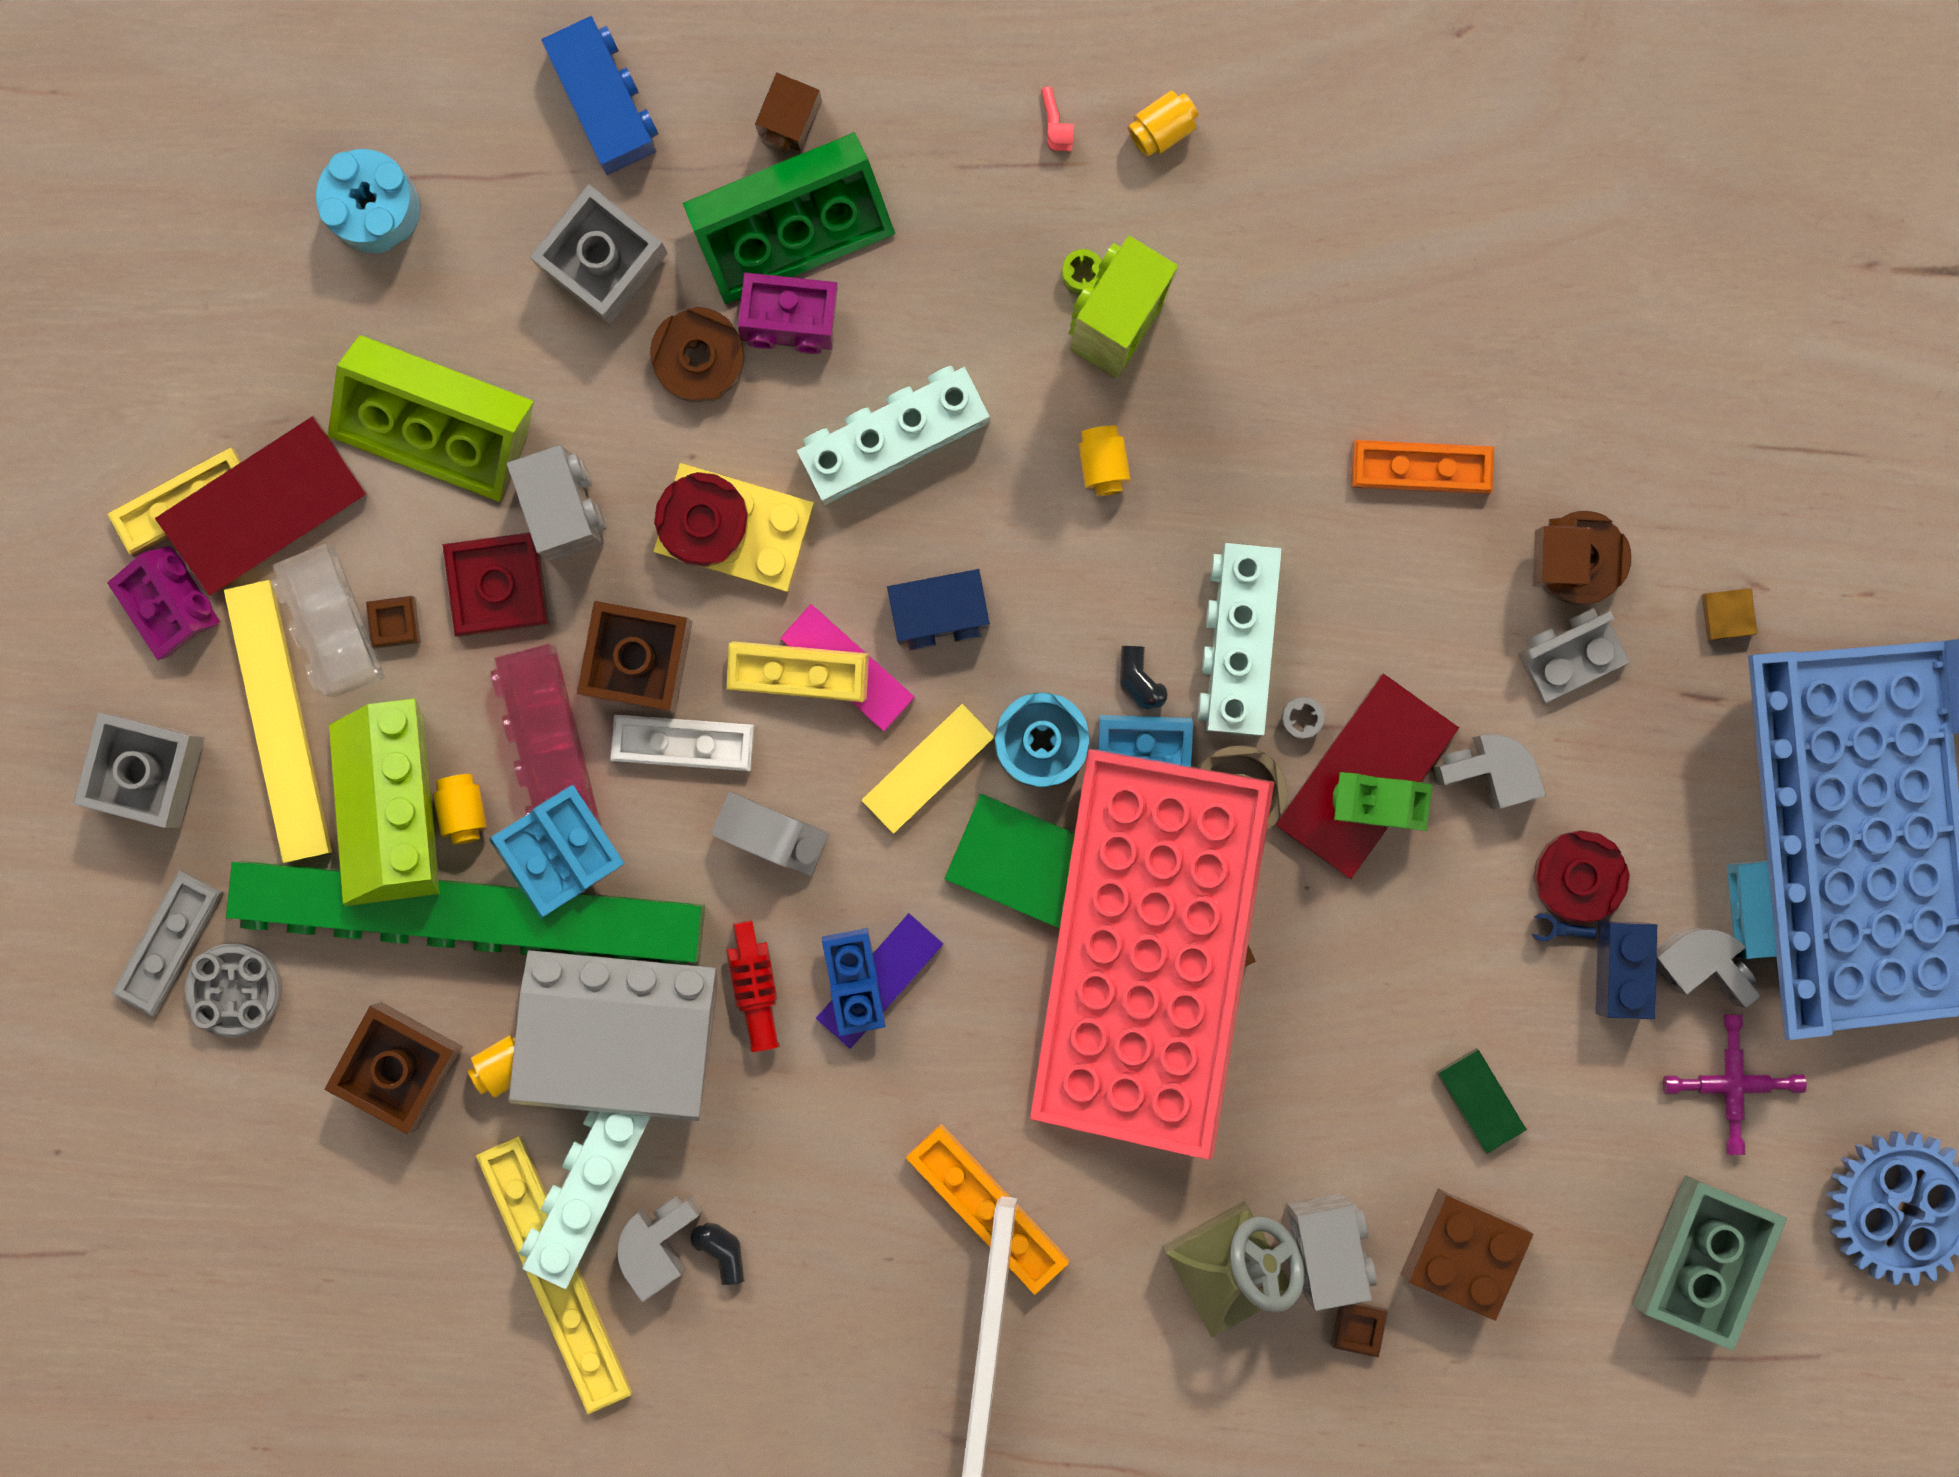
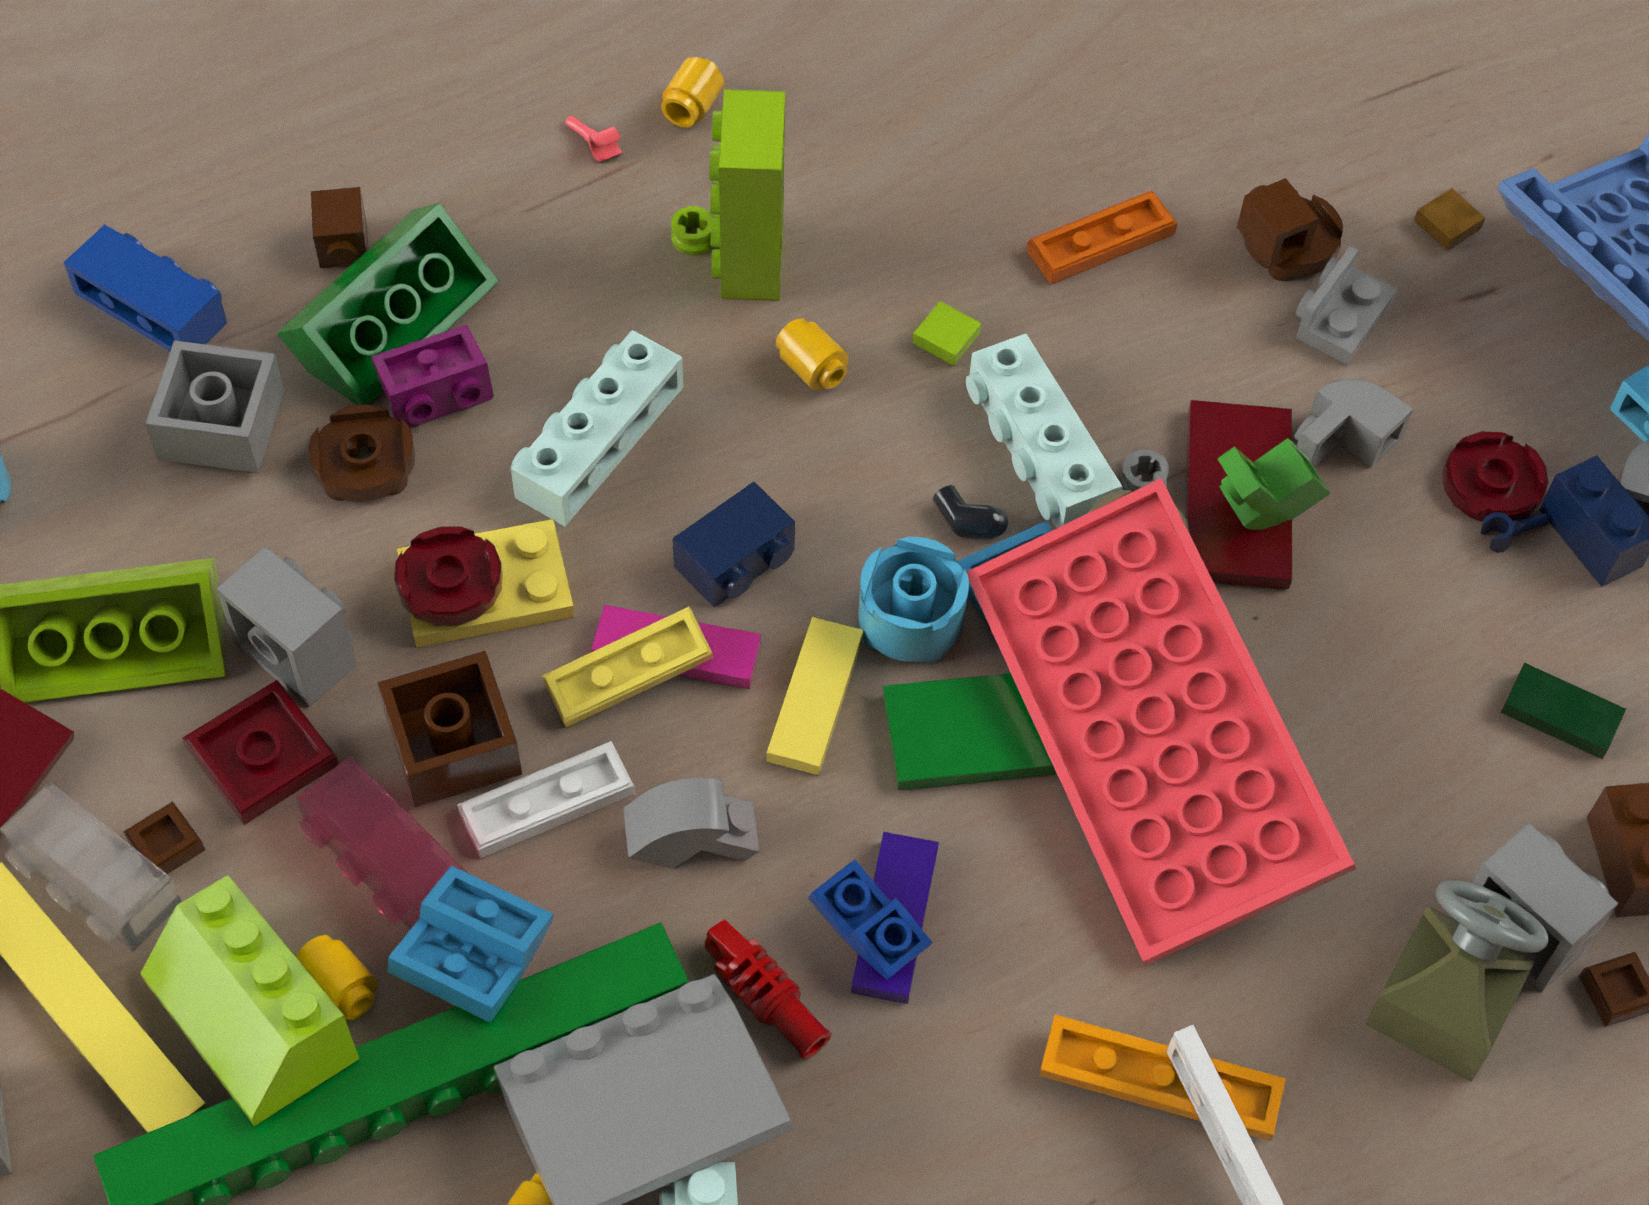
camera: 30 degrees left, 30 degrees down
(1230, 493) = (946, 333): none -> lime tile

